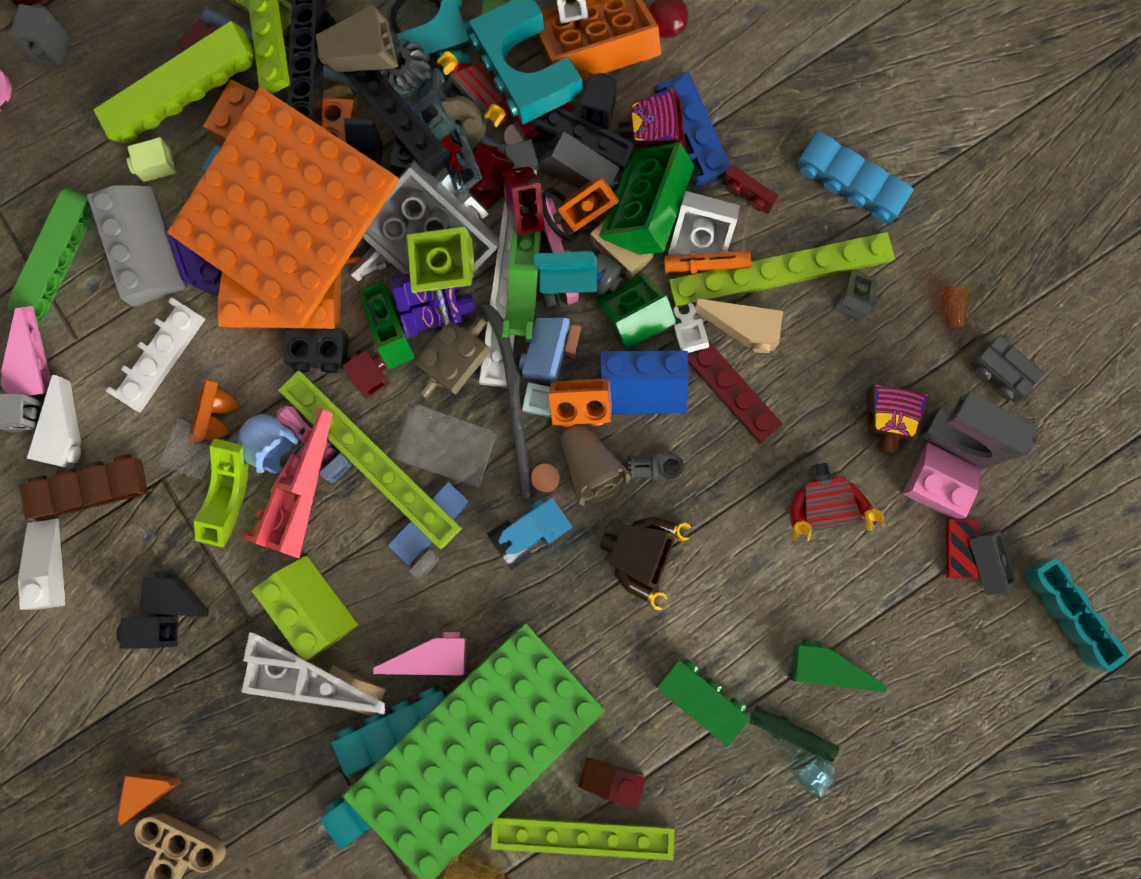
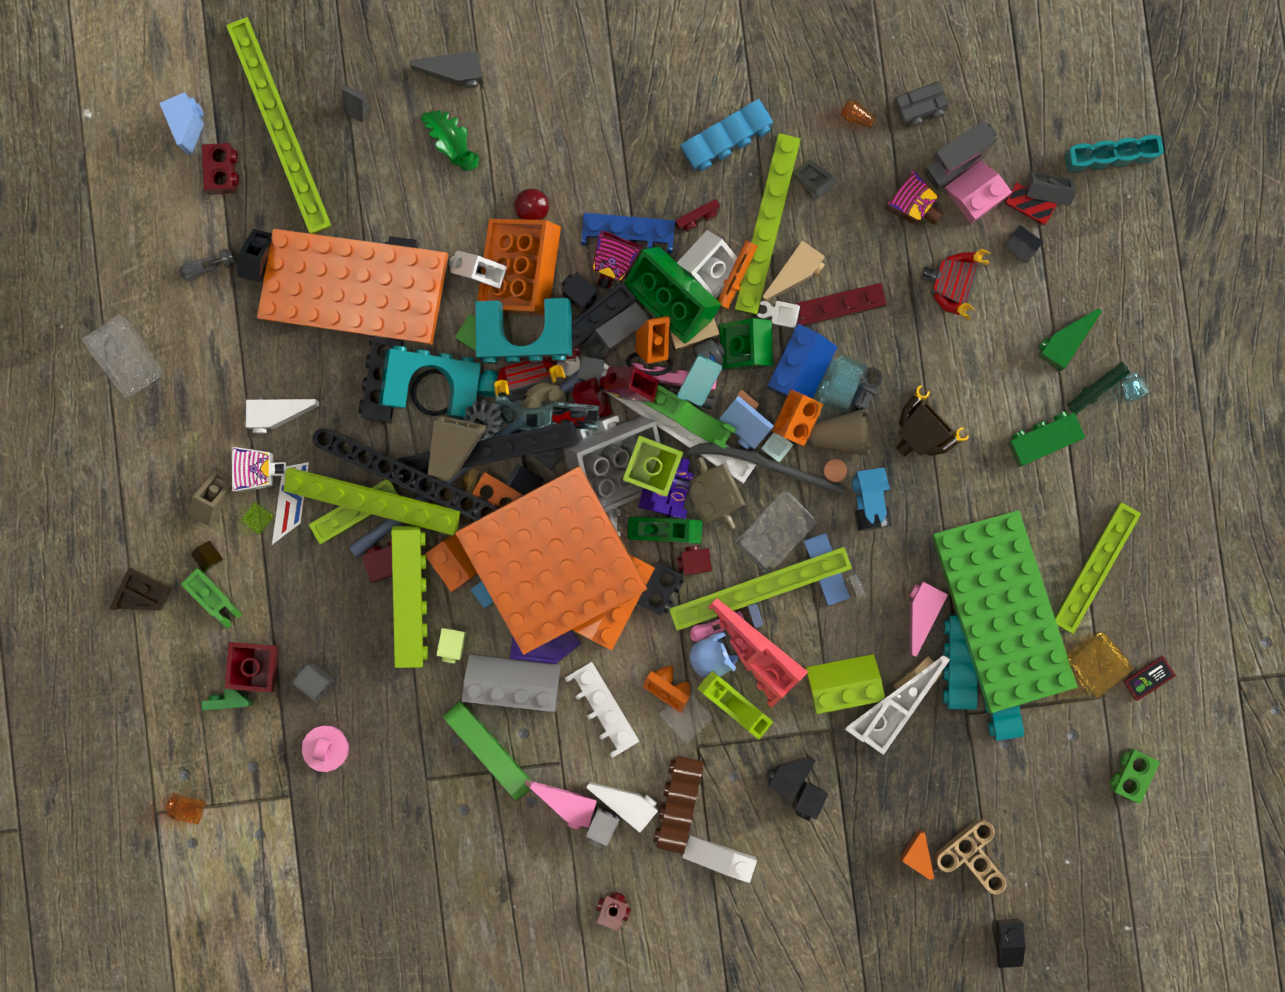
camera: 60 degrees left, 5 degrees up
(612, 782) = (1069, 528): dark red slope -> none
(645, 432) = (842, 383): none -> clear light blue brick
(913, 562) = (1023, 243): none -> black piece

